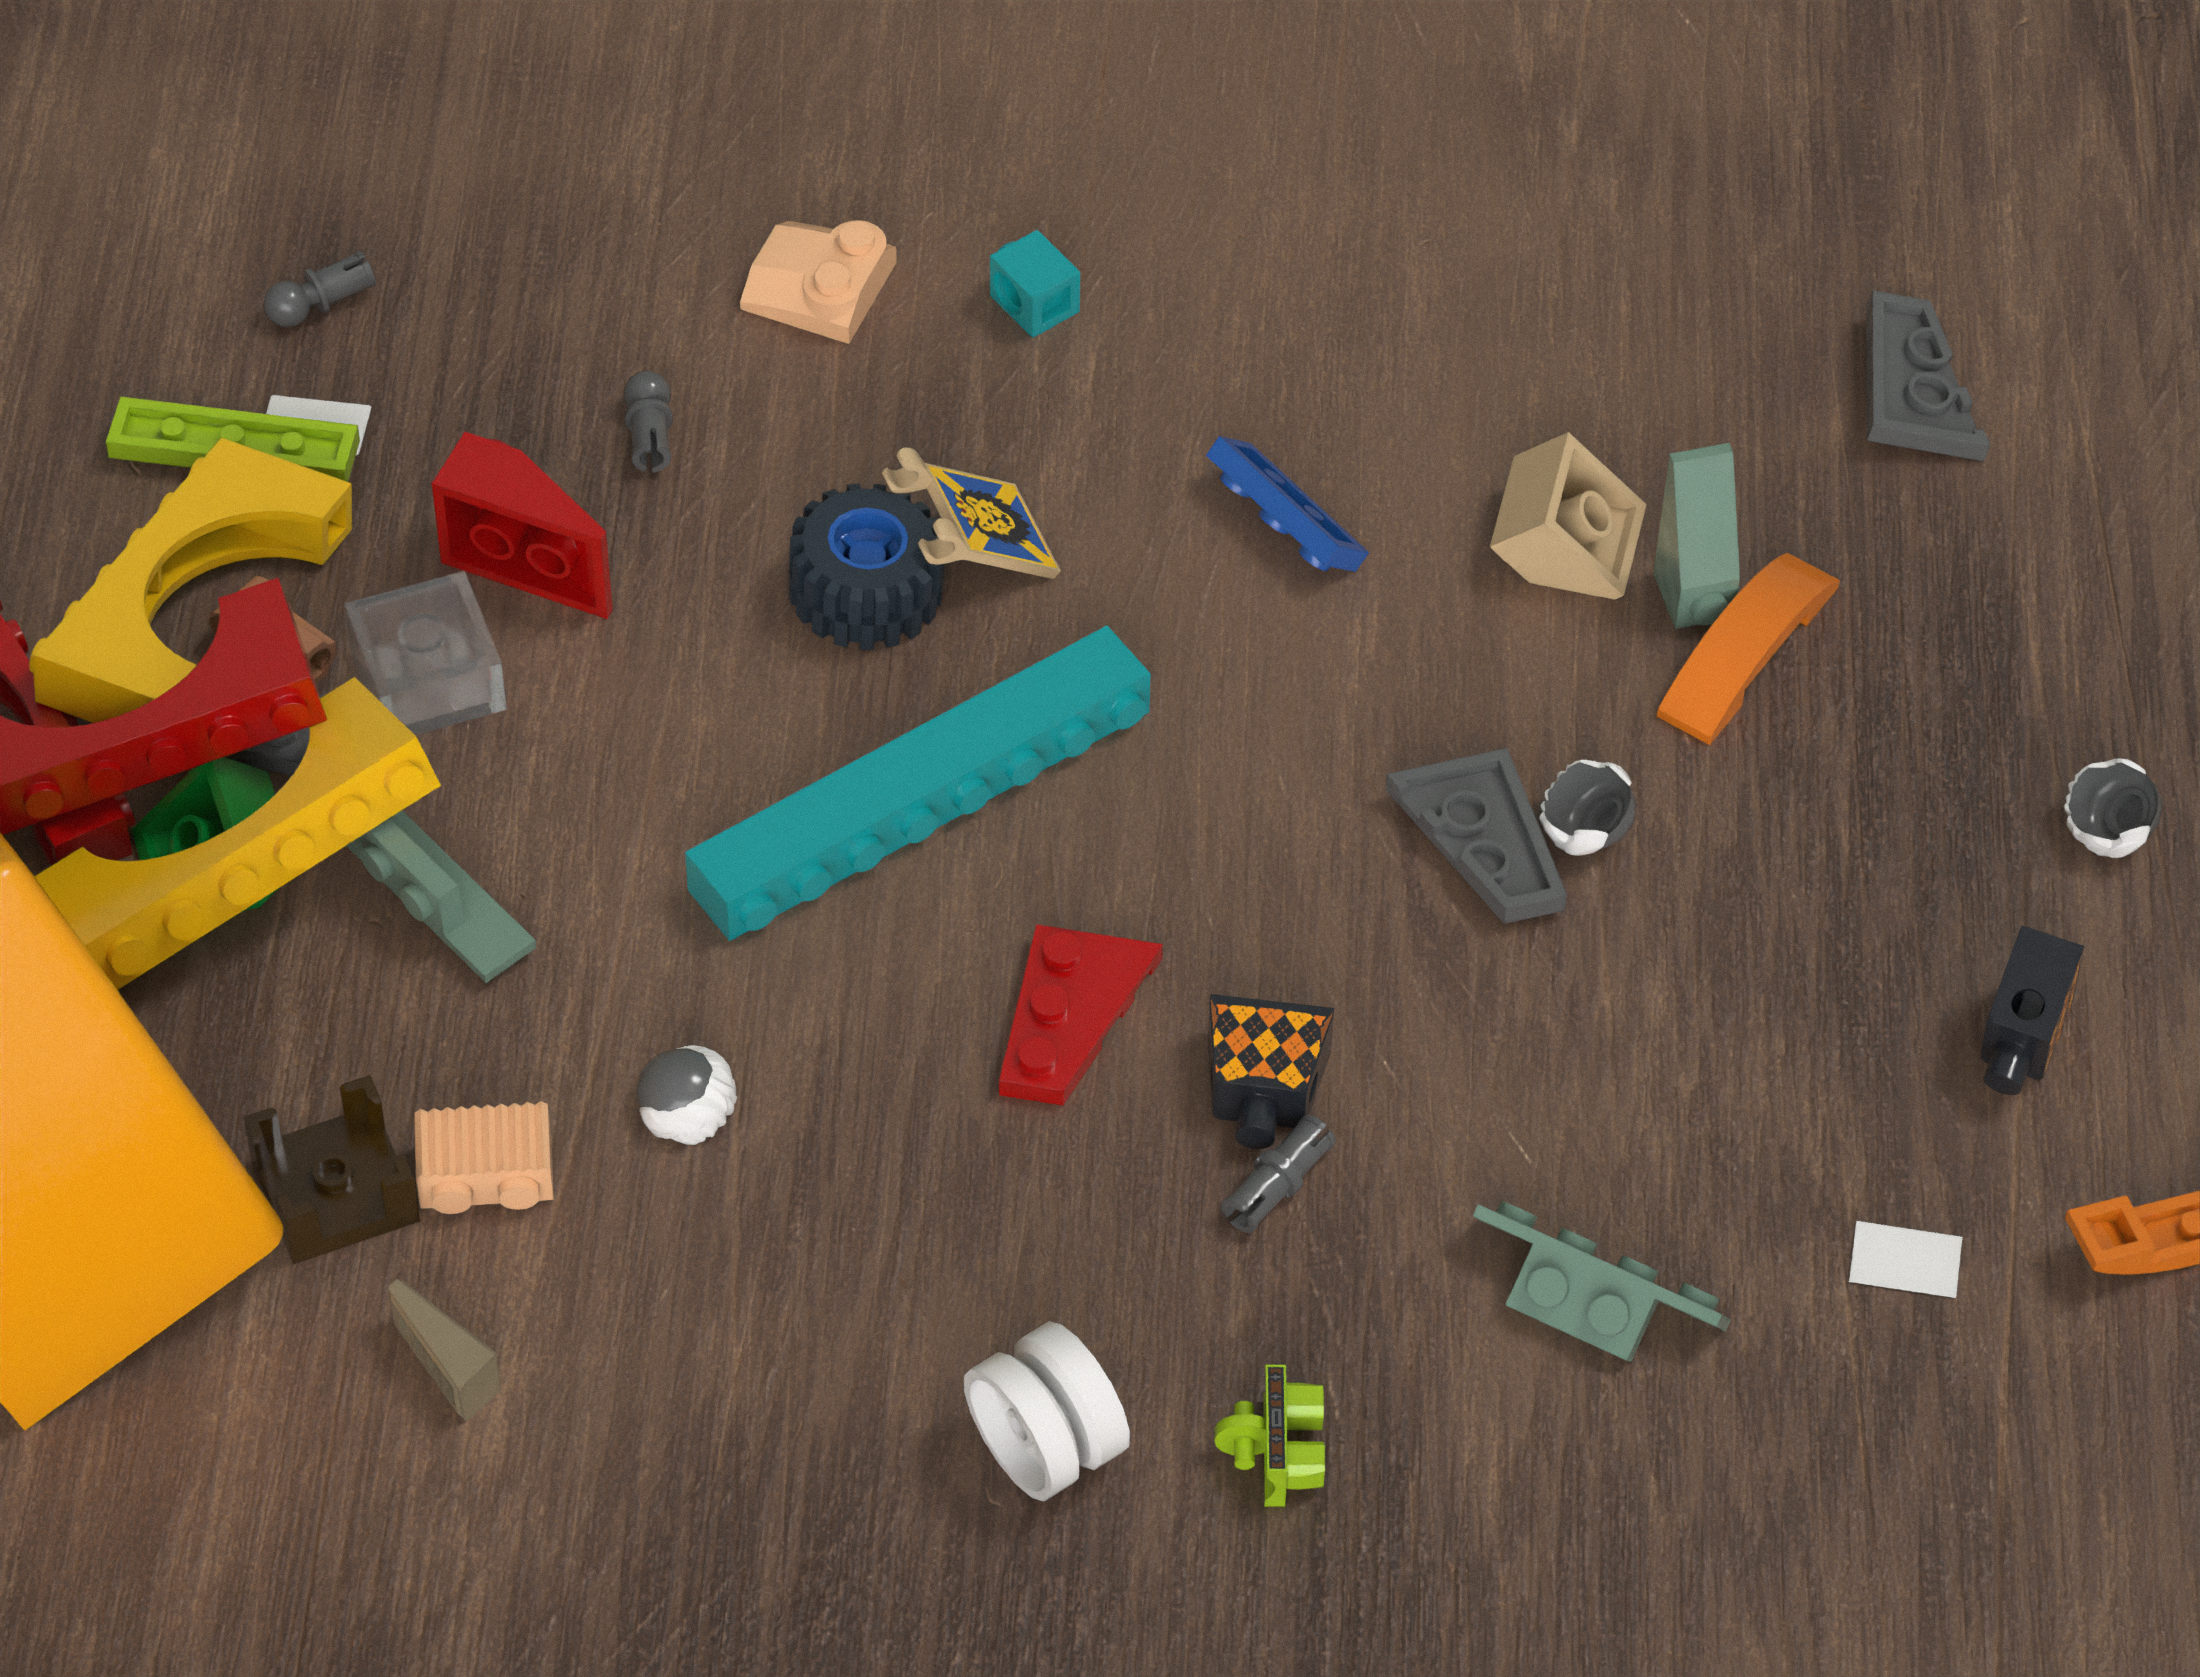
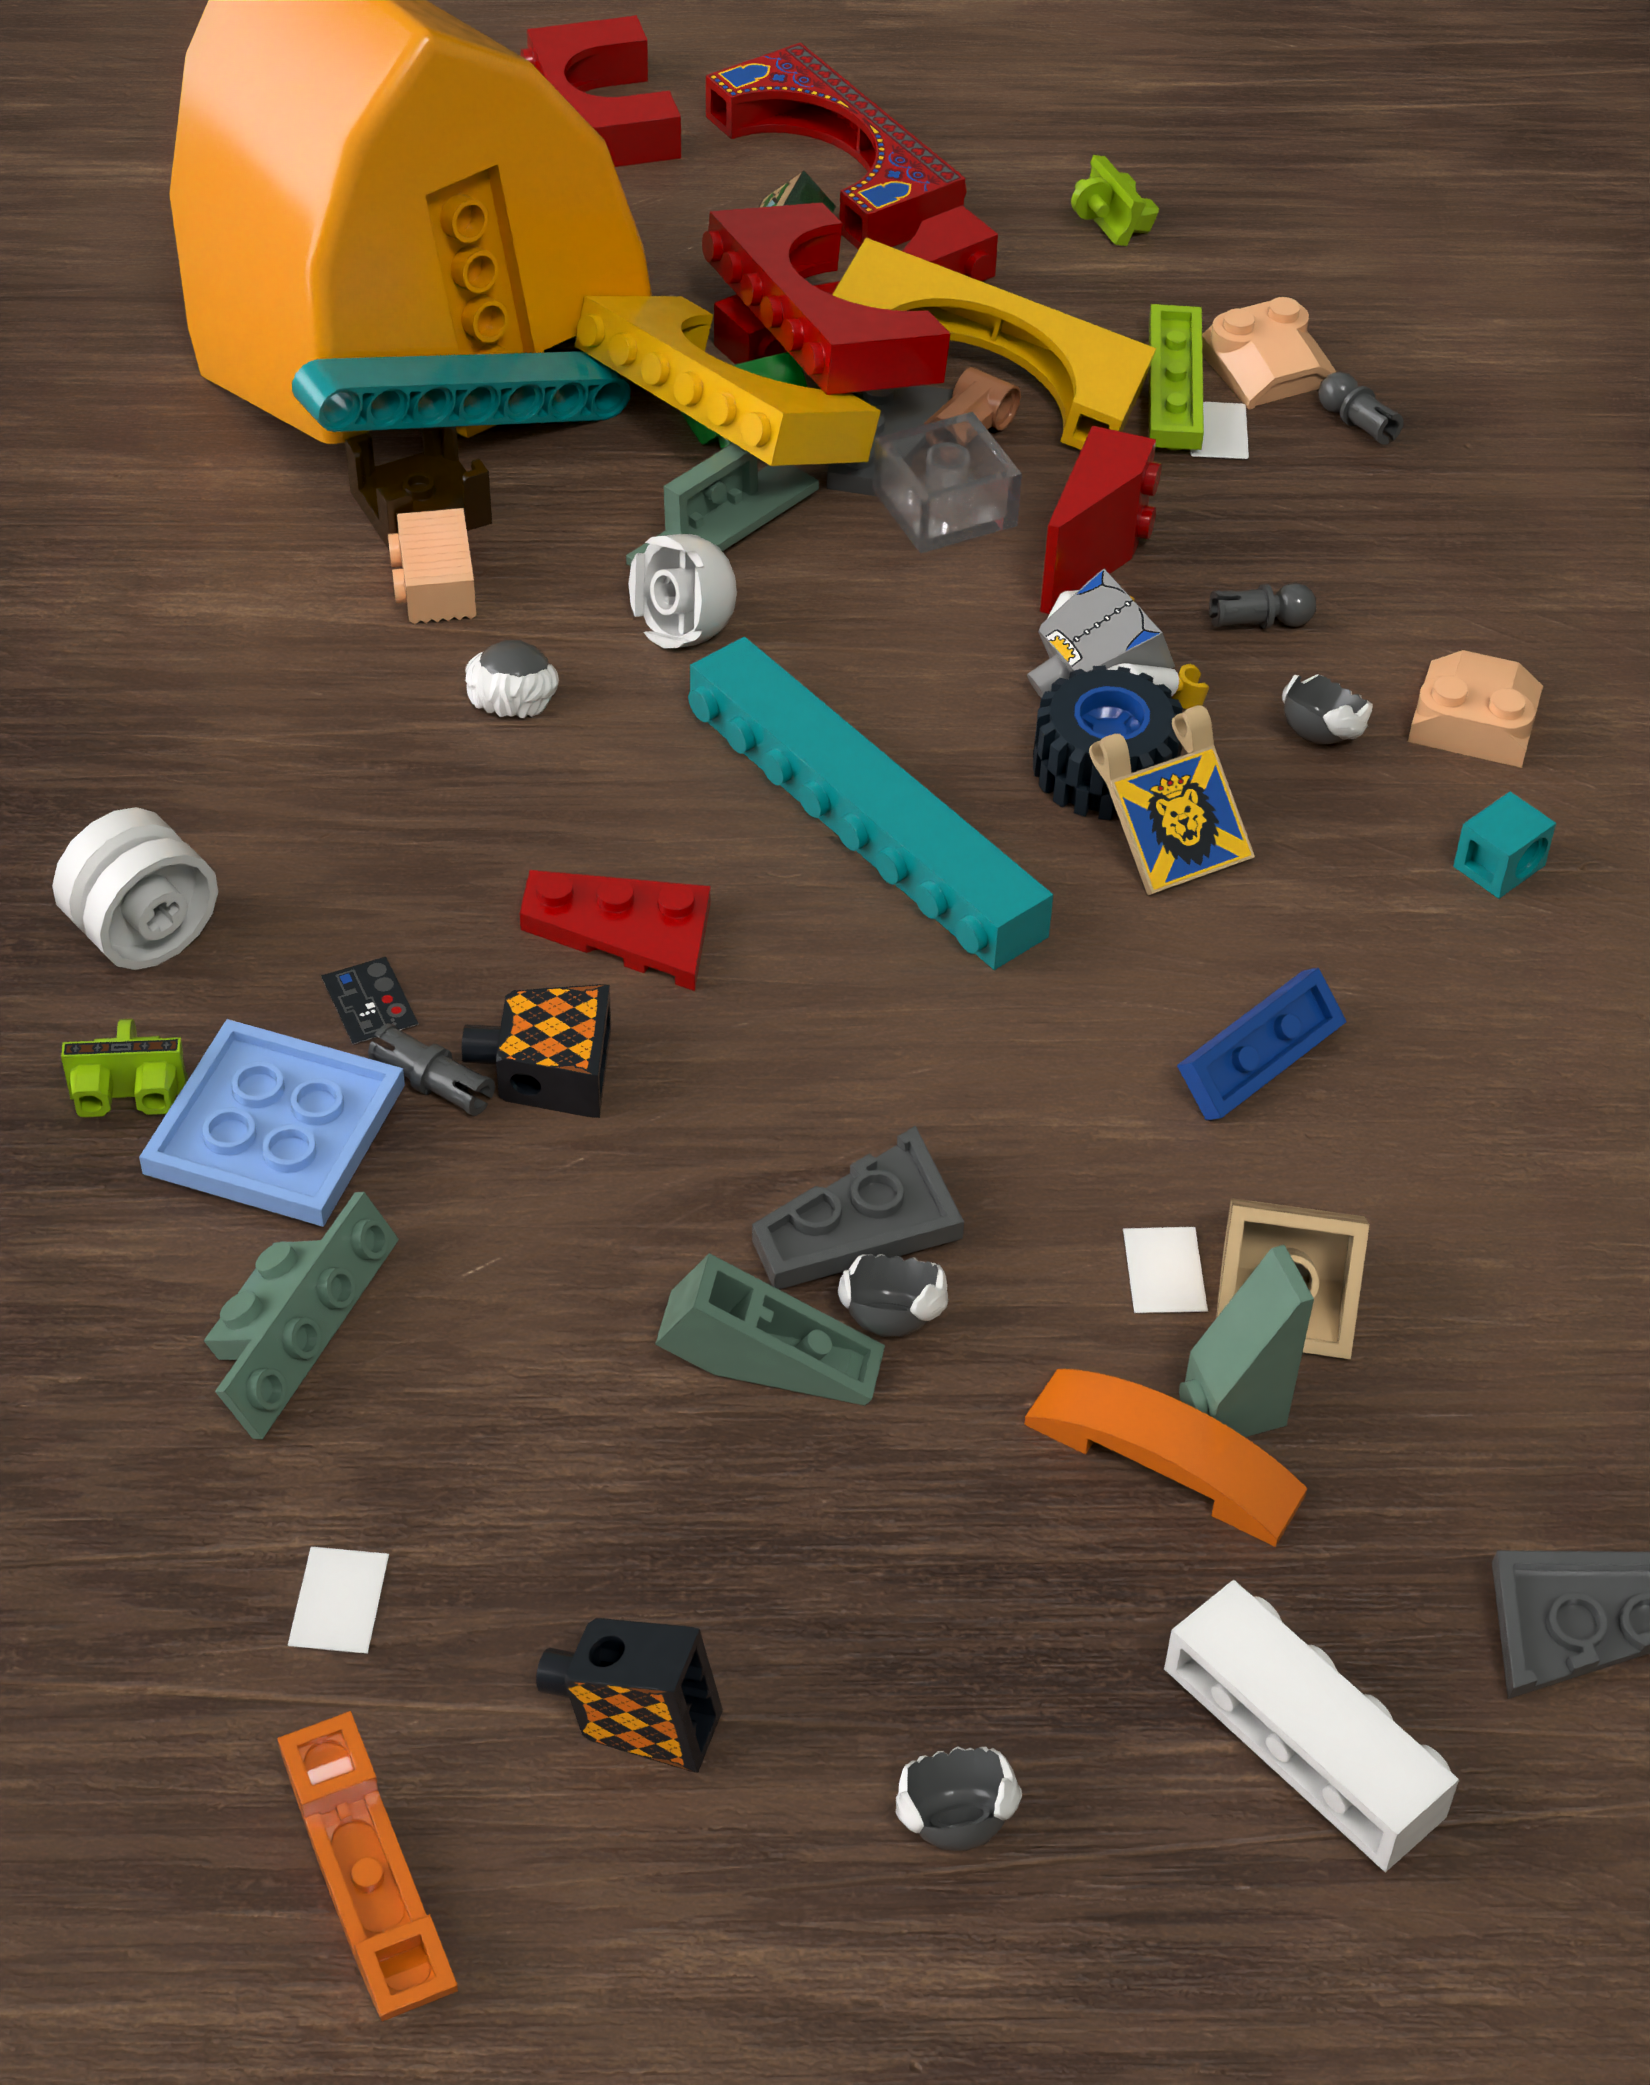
camera: 85 degrees right, 5 degrees down
(203, 354) = (1265, 352): none -> light nougat slope
(237, 1089) = (458, 390): none -> teal beam
(452, 1355) = (226, 564): dark tan slope -> none
(584, 912) = (682, 589): none -> white cylinder
(714, 551) = (1109, 629): none -> light grey torso
(828, 387) = (1324, 710): none -> dark grey hair
(1159, 1239) = (368, 999): none -> black sticker
(1348, 1305) = (273, 1122): none -> light blue plate
(1537, 623) = (1165, 1270): none -> white sticker
(1636, 913) = (766, 1337): none -> sand green slope
(2039, 571) = (1311, 1724): none -> white brick

